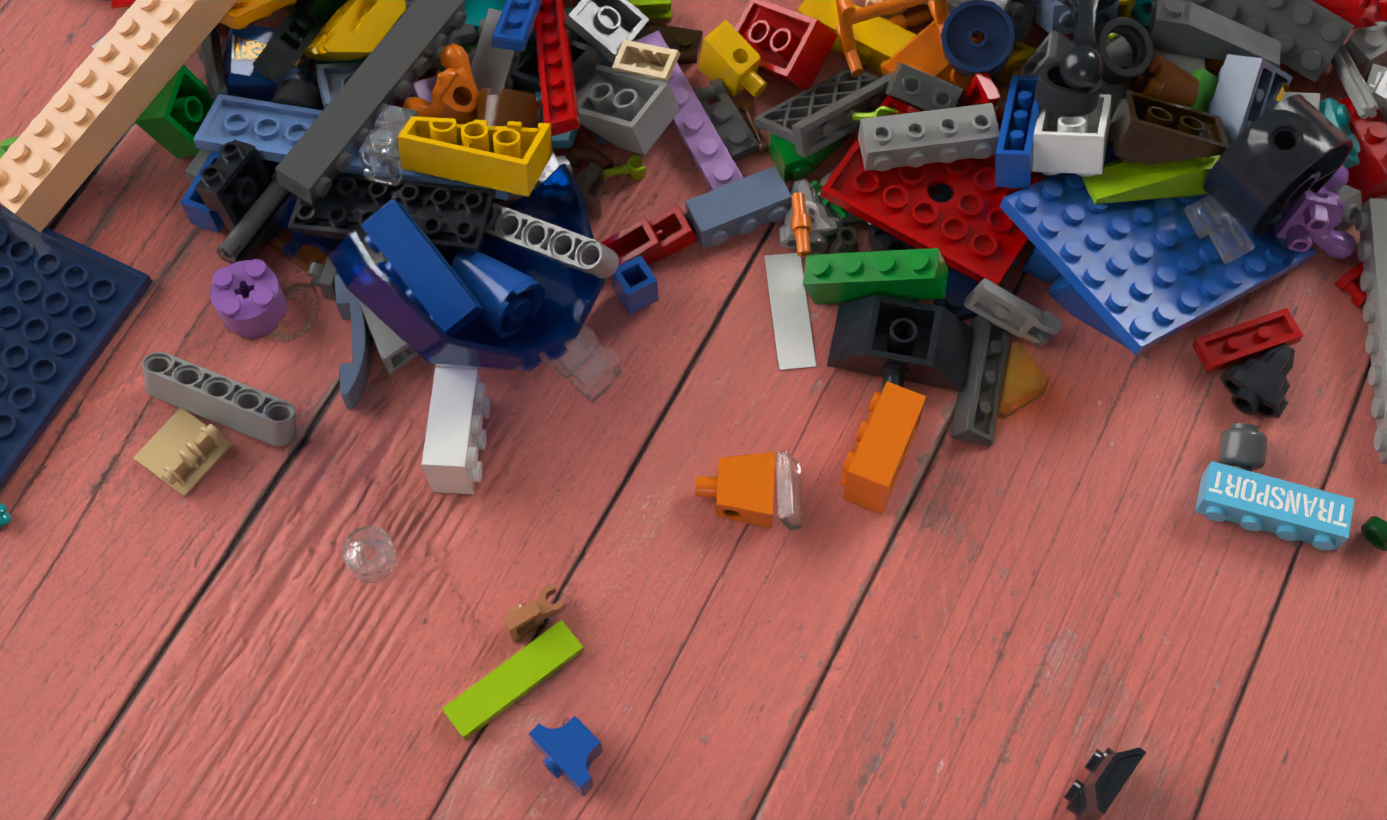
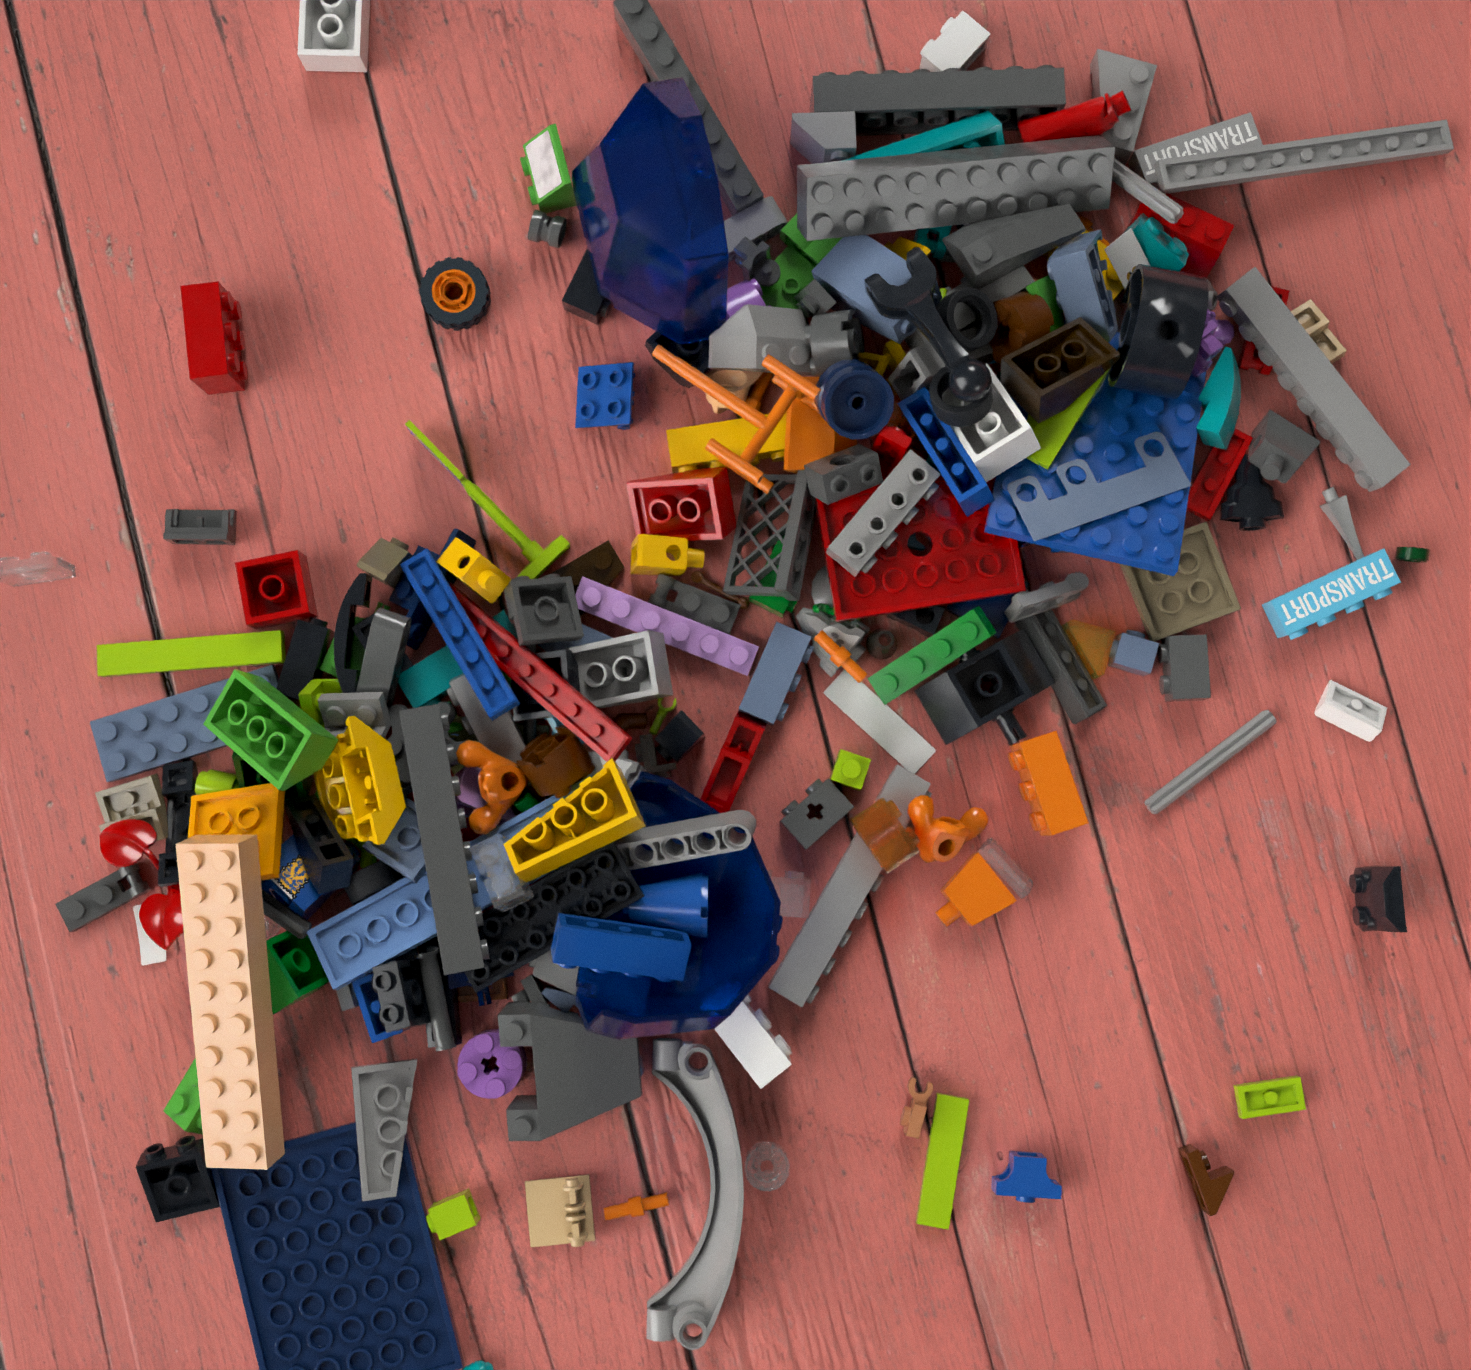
camera: 45 degrees left, 20 degrees up
(106, 381) = (453, 1214): none -> lime brick
(129, 264) = (381, 1115): none -> light grey wing
(219, 398) = (534, 1155): light grey beam -> none
(241, 498) = (636, 1206): none -> orange bar
(301, 345) = (574, 1070): none -> dark grey wedge
(381, 428) = (703, 1281): none -> light grey panel
(621, 188) = (678, 738): none -> black slope
(635, 285) = (764, 806): blue brick -> none
(646, 60) = (612, 623): tan slope -> none
(647, 400) = (840, 902): none -> light grey brick
(657, 335) = (833, 805): none -> dark grey brick
(710, 369) = (885, 835): none -> clear orange brick
(730, 316) = (850, 770): none -> lime brick
(758, 420) = (943, 836): none -> orange head
(880, 111) = (831, 525): lime hand -> none
(1045, 556) = (1210, 762): none -> light grey axle
(1050, 416) = (1133, 653): none -> sand blue brick
(1087, 461) = (1184, 668): none -> dark grey brick
(1117, 250) = (1096, 500): none -> sand blue piece
(1140, 397) = (1192, 596): none -> dark tan plate
(1213, 619) = (1351, 711): none -> white slope
(1224, 230) = (1140, 408): clear slope -> none
(1243, 447) = (1279, 567): dark grey head -> none
(1296, 285) = (1220, 402): none -> teal slope
(1322, 358) = (1279, 447): none -> dark grey torso
(1335, 454) = (1339, 513): none -> light grey piece

